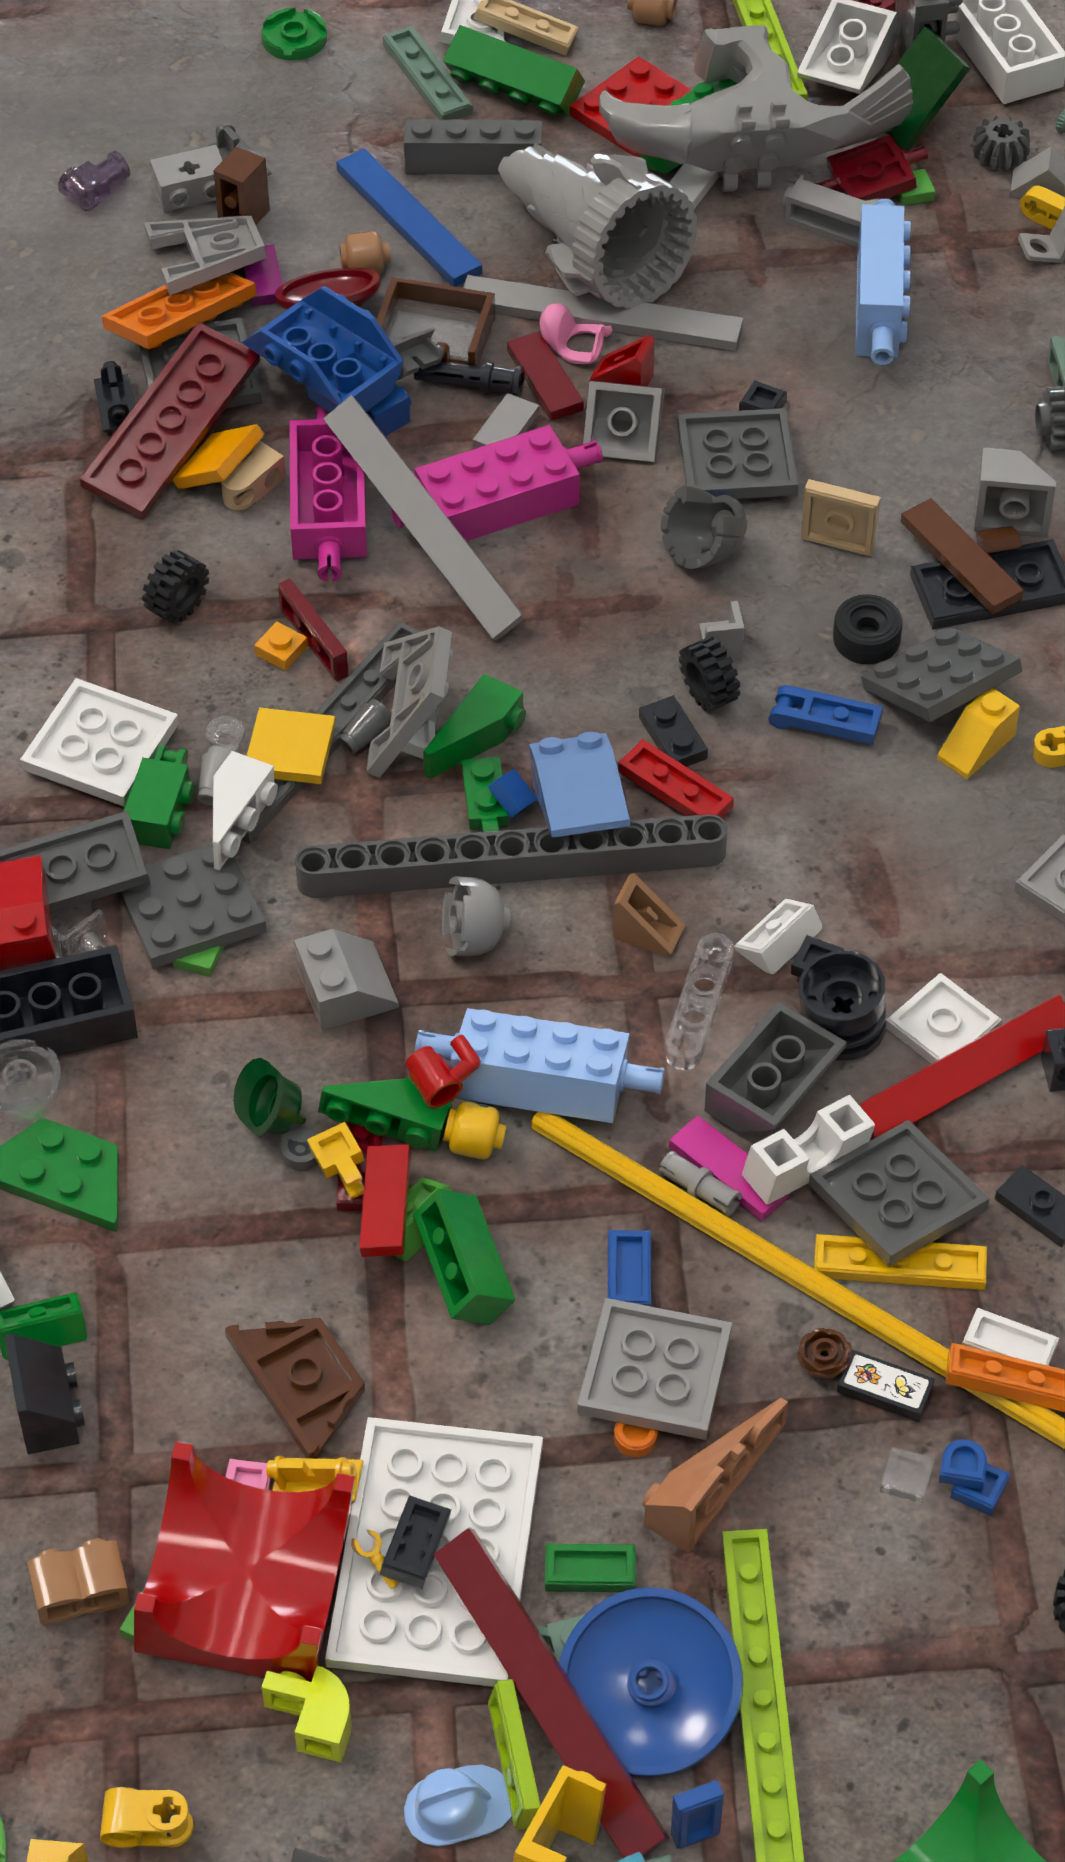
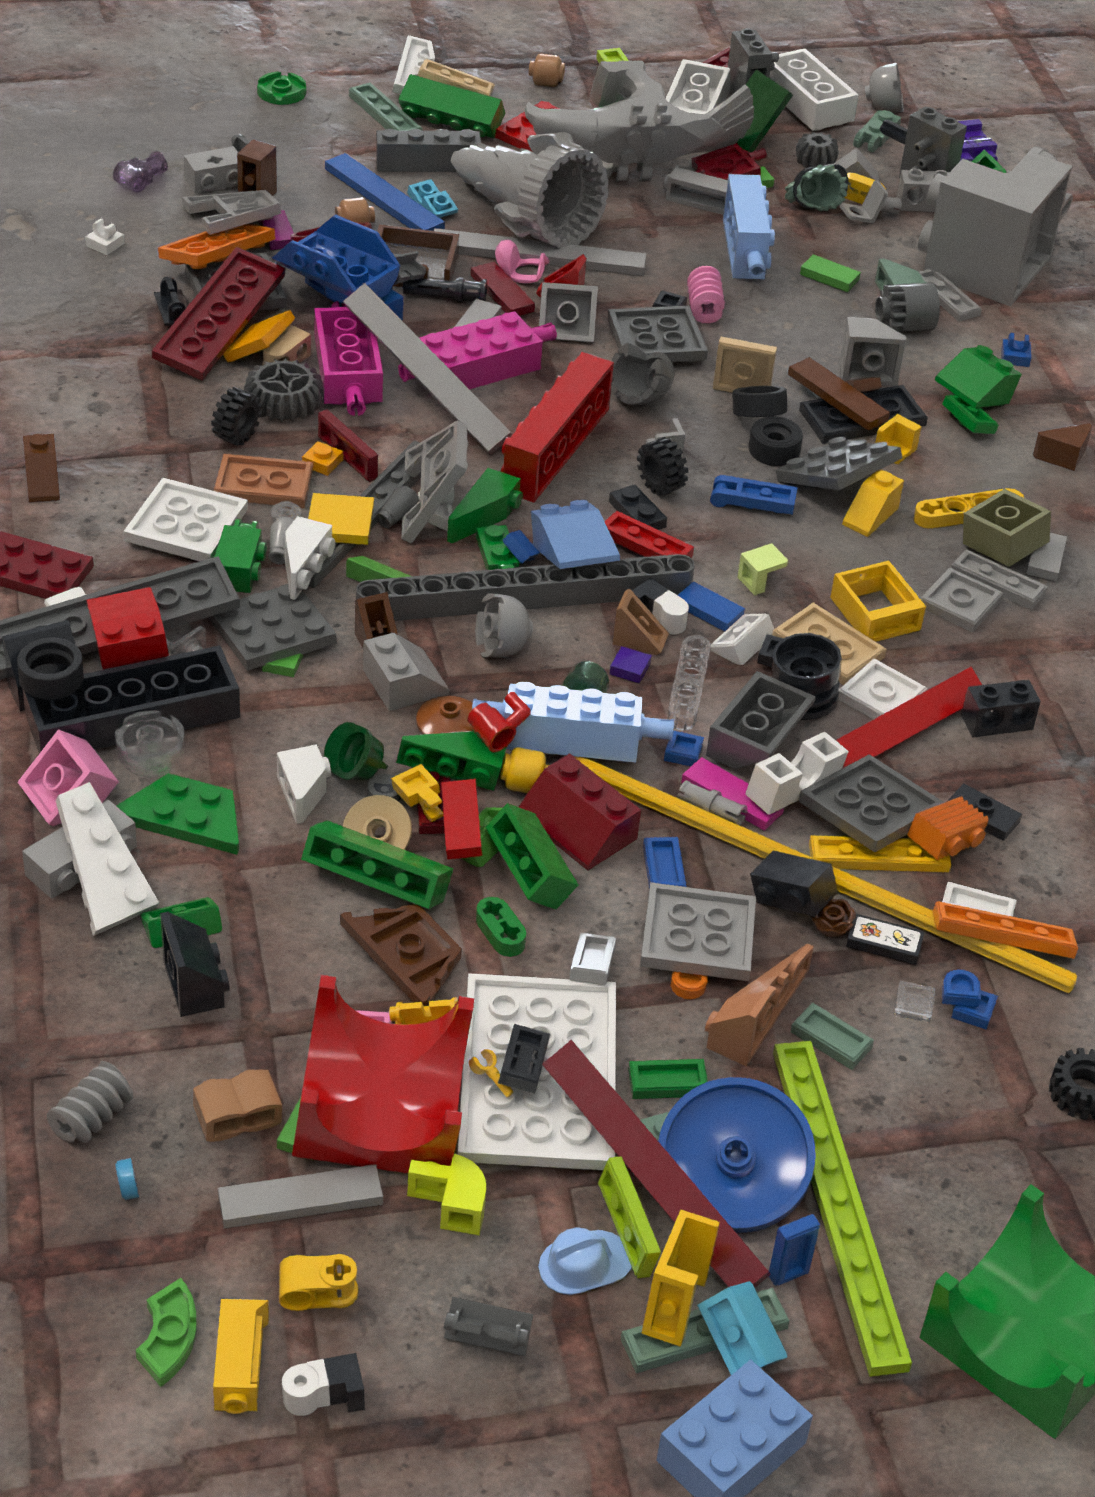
camera: 10 degrees left, 10 degrees down
(39, 290) = (104, 238): none -> white tile
(139, 1702) = (300, 1196): none -> light grey tile
(203, 679) = (264, 479): none -> nougat tile
(203, 1133) = (302, 778): none -> white slope
(220, 536) = (285, 389): none -> dark grey gear
(264, 1210) = (381, 812): none -> tan dish
(276, 1261) = (377, 864): none -> green brick
(314, 904) = (373, 617): none -> reddish brown slope
(328, 824) = (364, 569): none -> bright green slope
(385, 1057) = (444, 715): none -> dark orange dish
(409, 1352) = (495, 929): none -> green beam
(470, 225) = (432, 199): none -> medium azure slope
(520, 1402) = (592, 958): none -> light grey tile
(533, 1193) = (582, 812): none -> dark red slope
(567, 1001) = (587, 676): none -> clear green head
(582, 607) = (558, 424): none -> red brick
(629, 972) = (630, 664): none -> dark purple tile
(678, 887) = (664, 605): none -> white leg
(678, 1099) = (684, 748): none -> blue tile
(742, 886) = (711, 606): none -> blue tile
(779, 1309) = (794, 883): none -> black brick
(797, 1518) = (832, 1036): none -> sand green tile
(810, 390) = (706, 294): none -> bright pink piece
(812, 827) = (756, 565): none -> yellowish green panel
(854, 569) = (759, 401): none -> black tyre
(891, 939) = (854, 646): none -> tan tile
(968, 918) = (884, 623): none -> yellow window
(987, 350) = (830, 273): none -> bright green tile
(988, 1234) = (948, 828): none -> orange brick
(992, 210) = (819, 187): none -> sand green hair
(1029, 629) = (900, 433): none -> yellow panel

